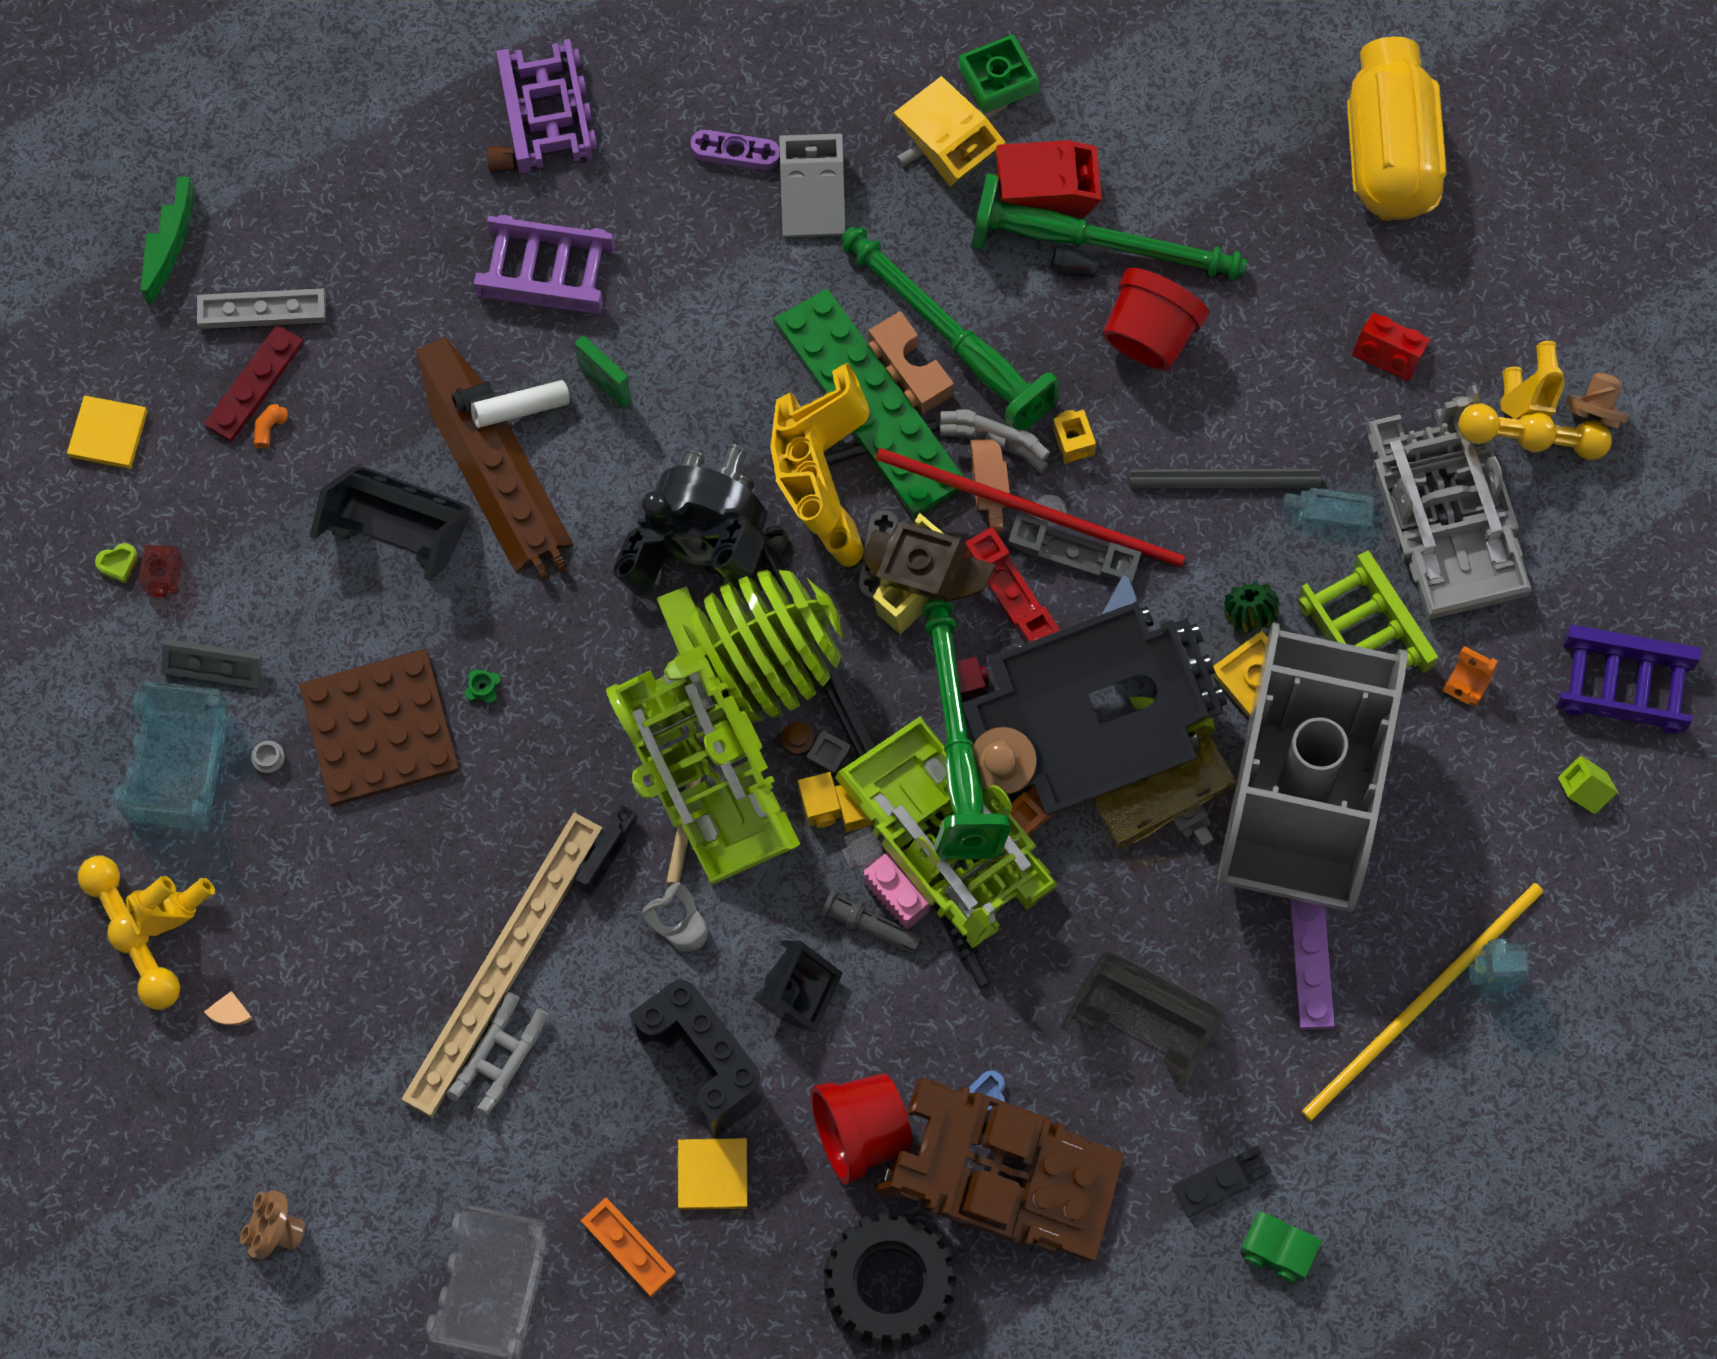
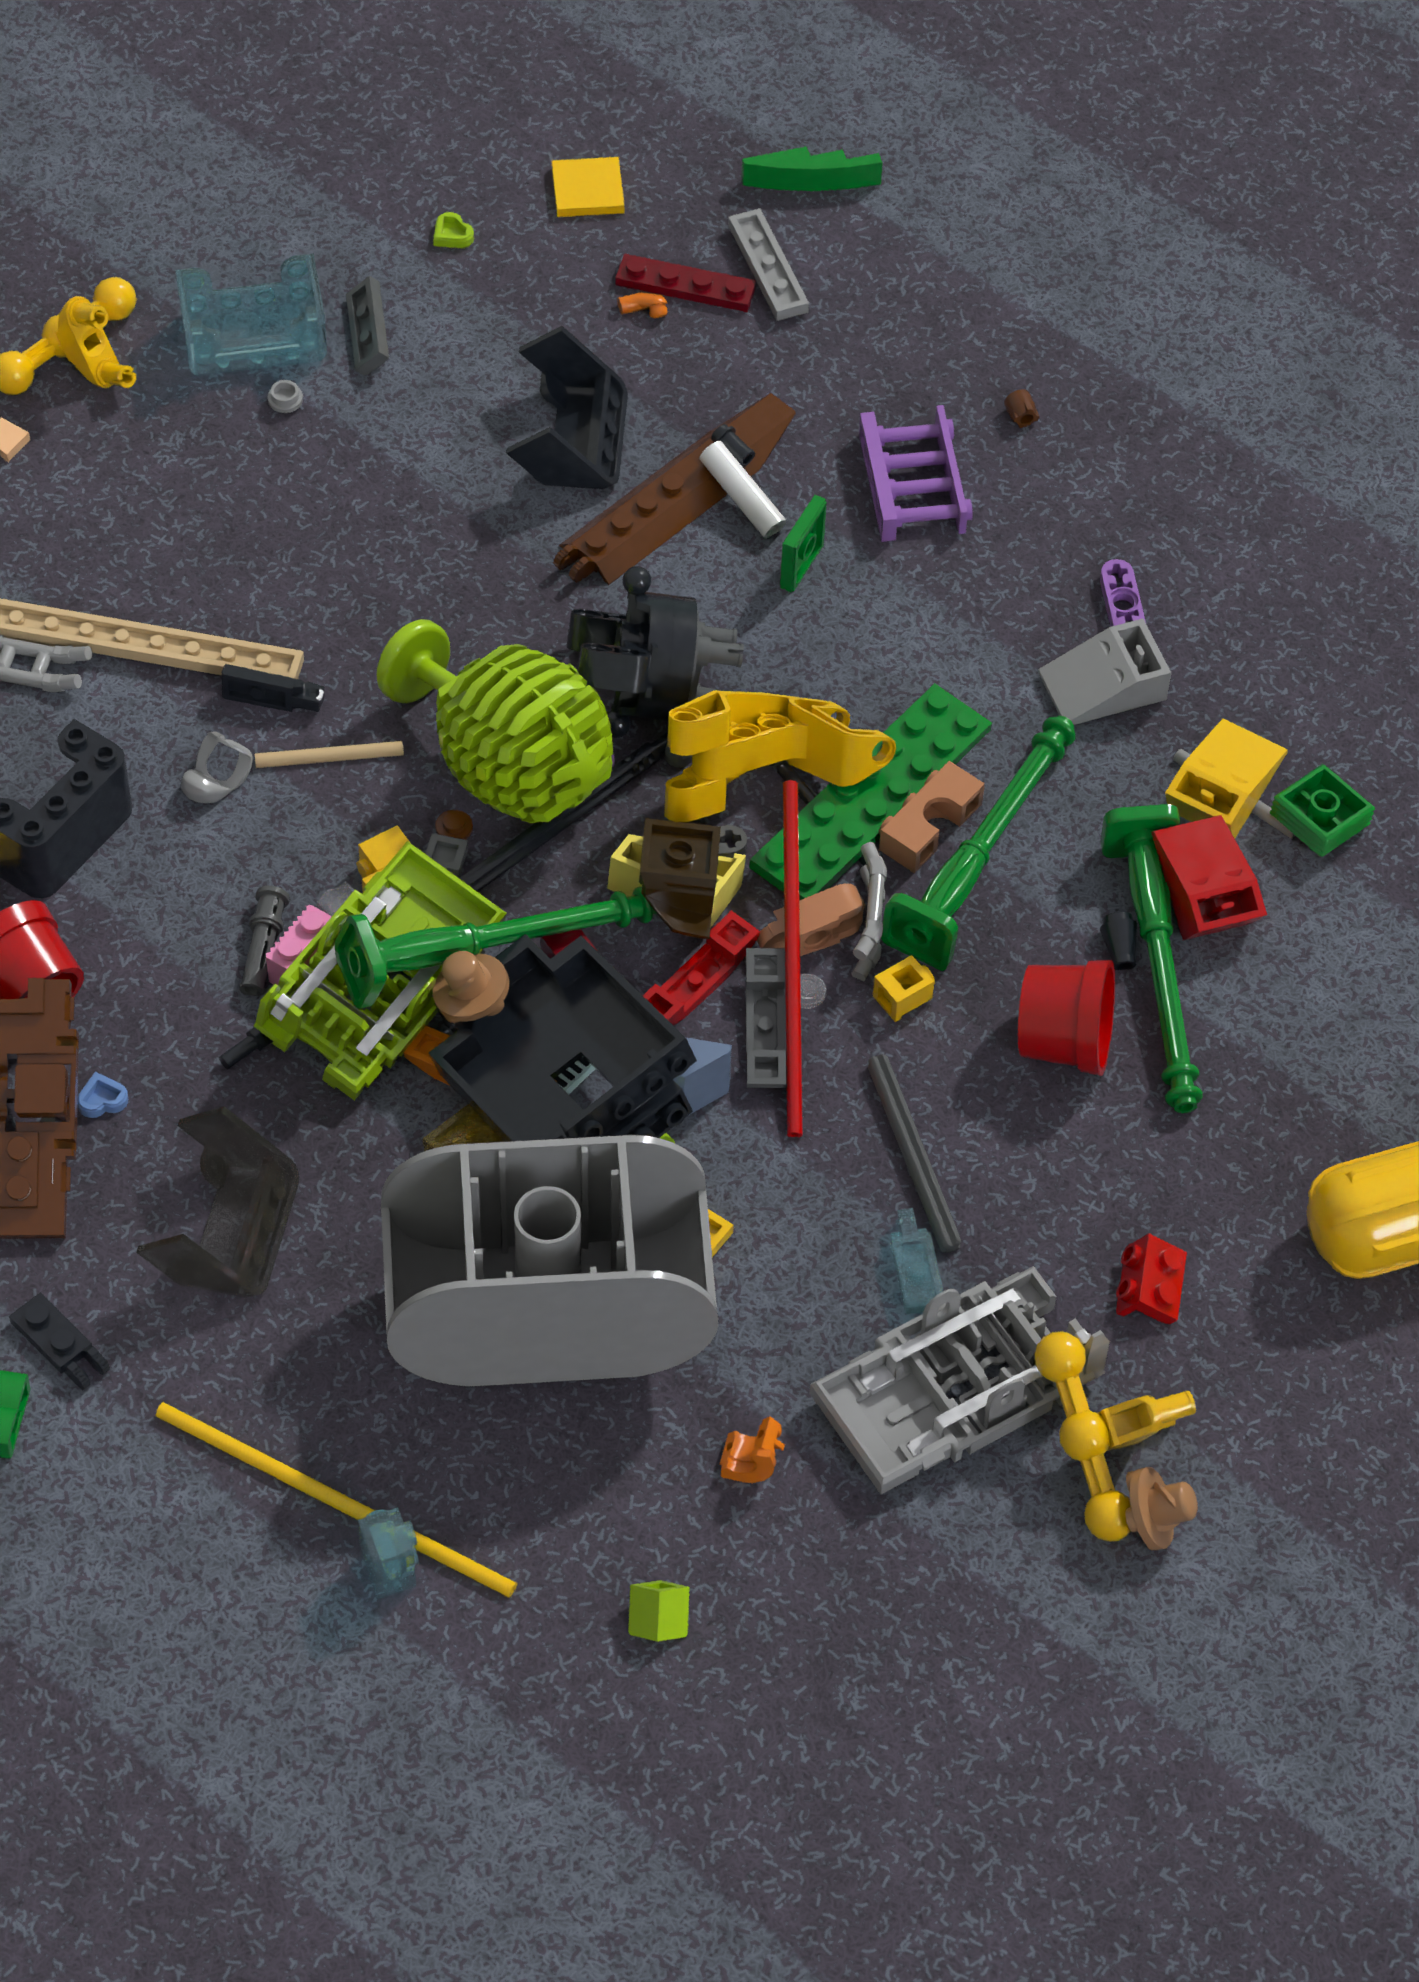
camera: 70 degrees right, 15 degrees down
(160, 557) = (452, 260): clear red brick -> none
(378, 727) = (347, 477): reddish brown plate -> none
(479, 677) = (418, 538): green plate -> none
(521, 109) = (1087, 406): medium lavender fence -> none
(737, 818) = (376, 707): lime piece -> none
(799, 986) = (163, 883): black brick -> none
(1251, 607) = (756, 1205): dark green gear -> none
(1311, 966) = (332, 1377): medium lavender plate -> none
(1383, 599) = (789, 1366): lime fence -> none
(1648, 654) = (845, 1602): dark purple fence -> none

